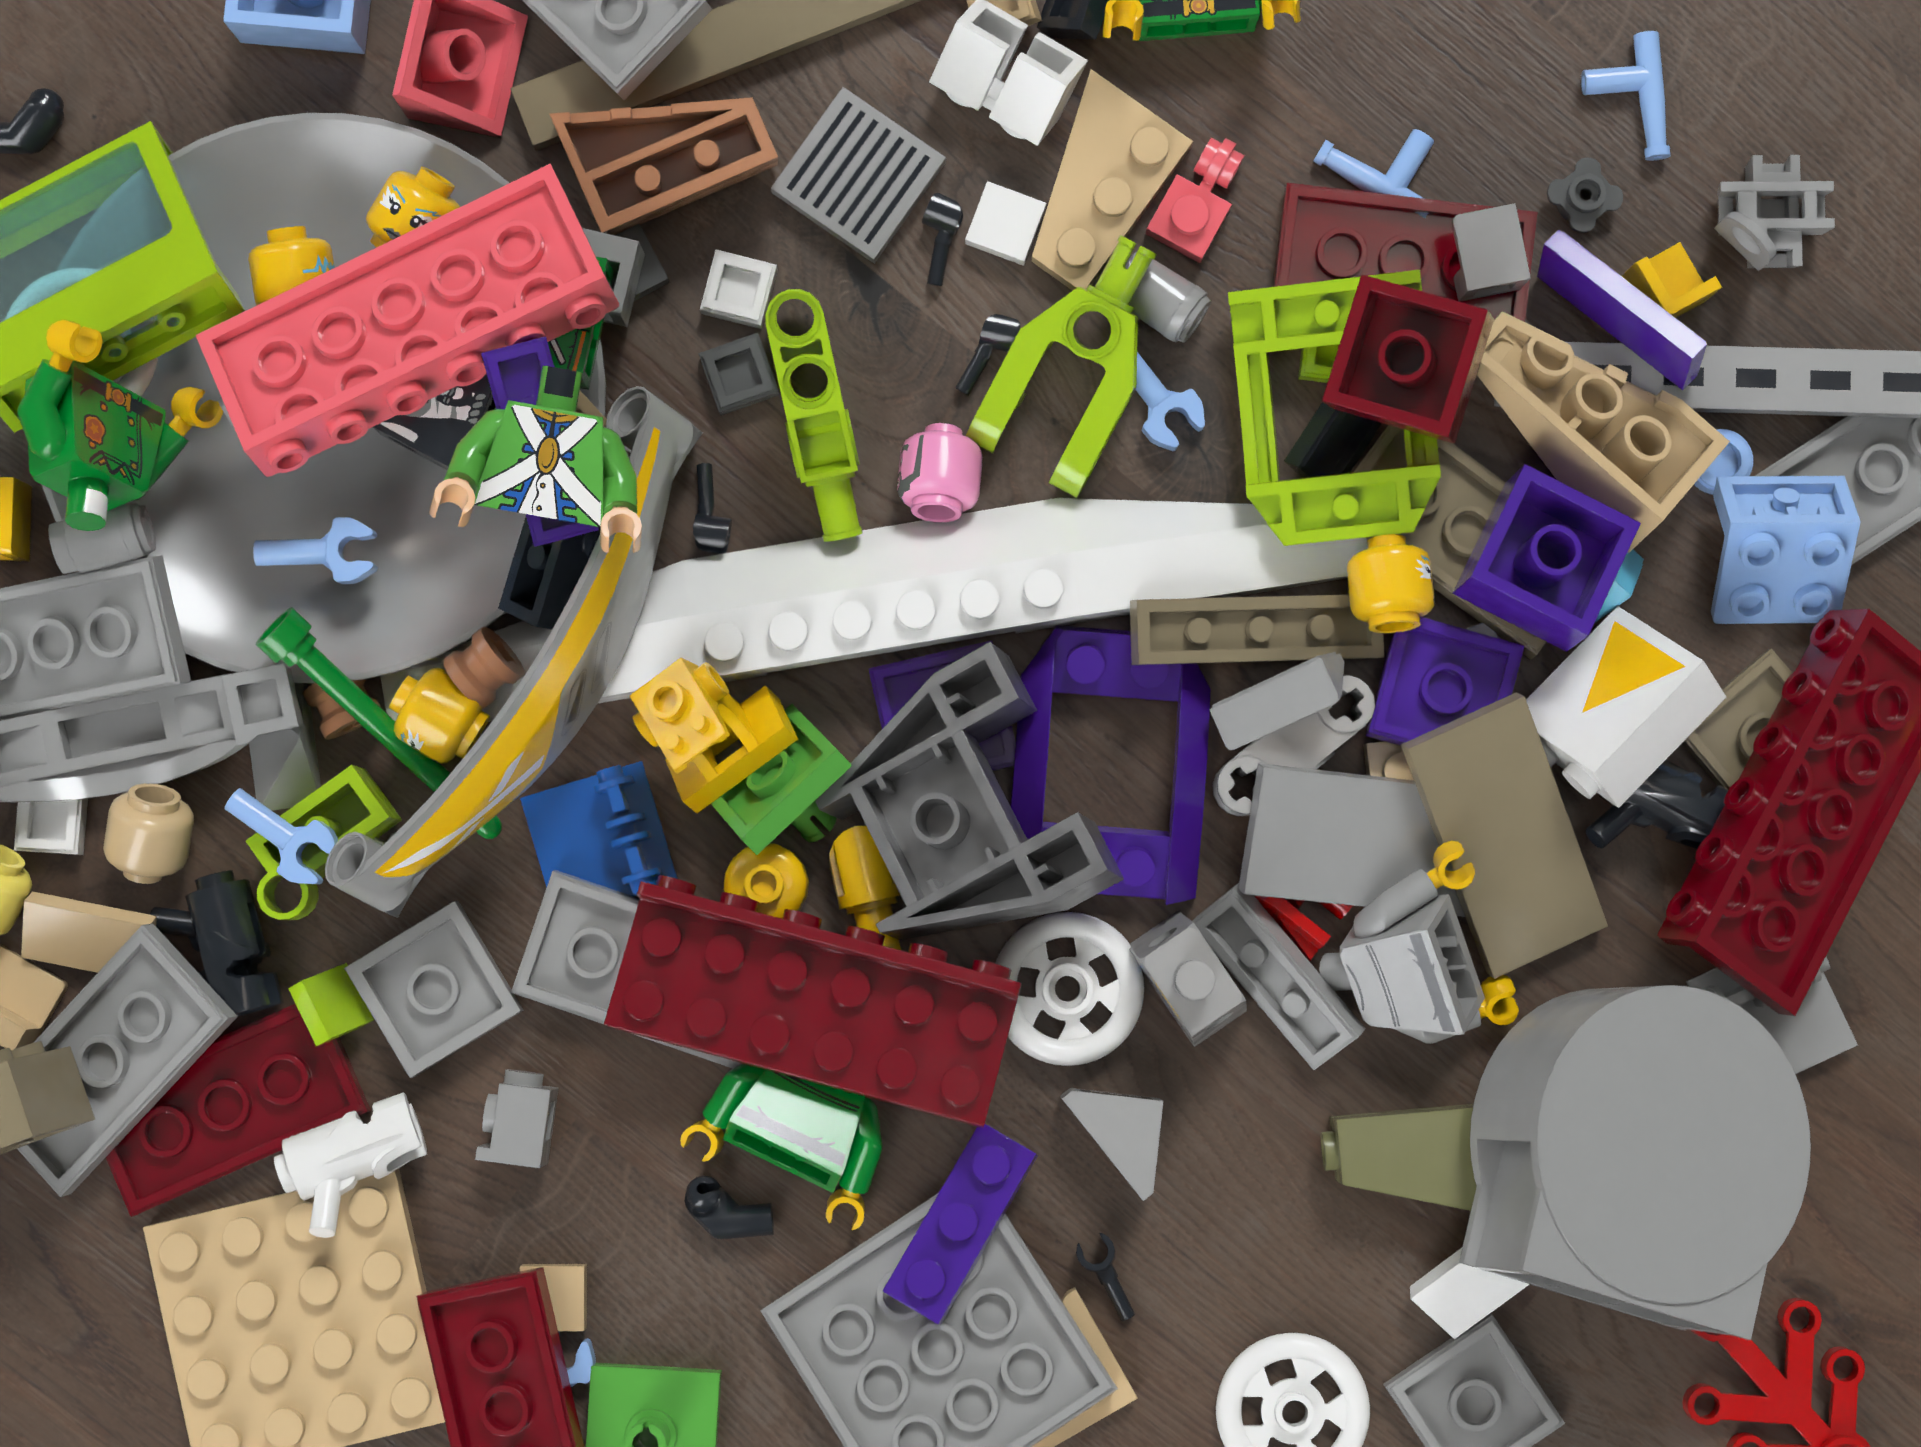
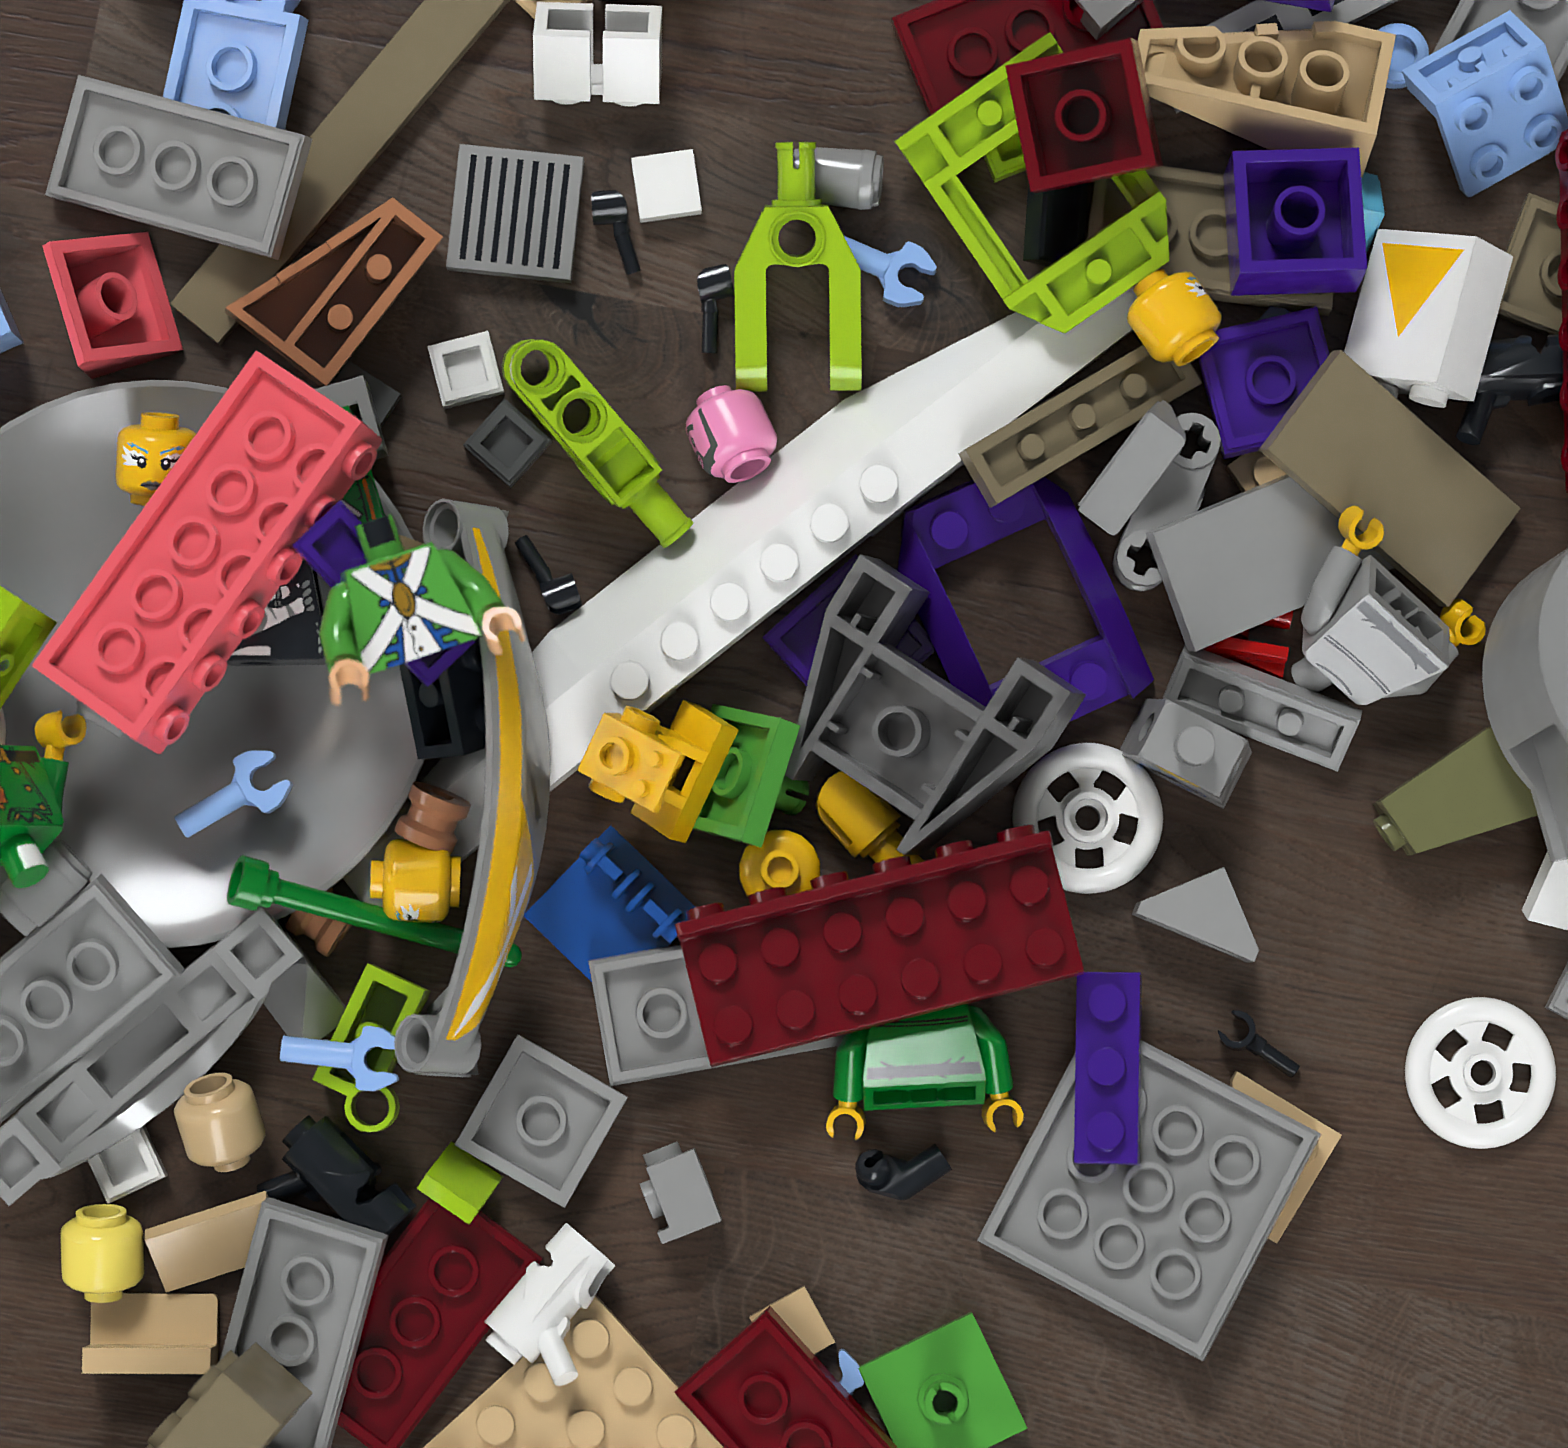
camera: 30 degrees left, 0 degrees up
(287, 261) = (71, 562): yellow head -> none
(1105, 182) = (733, 103): tan wing -> none
(1191, 213) = (822, 88): coral plate -> none

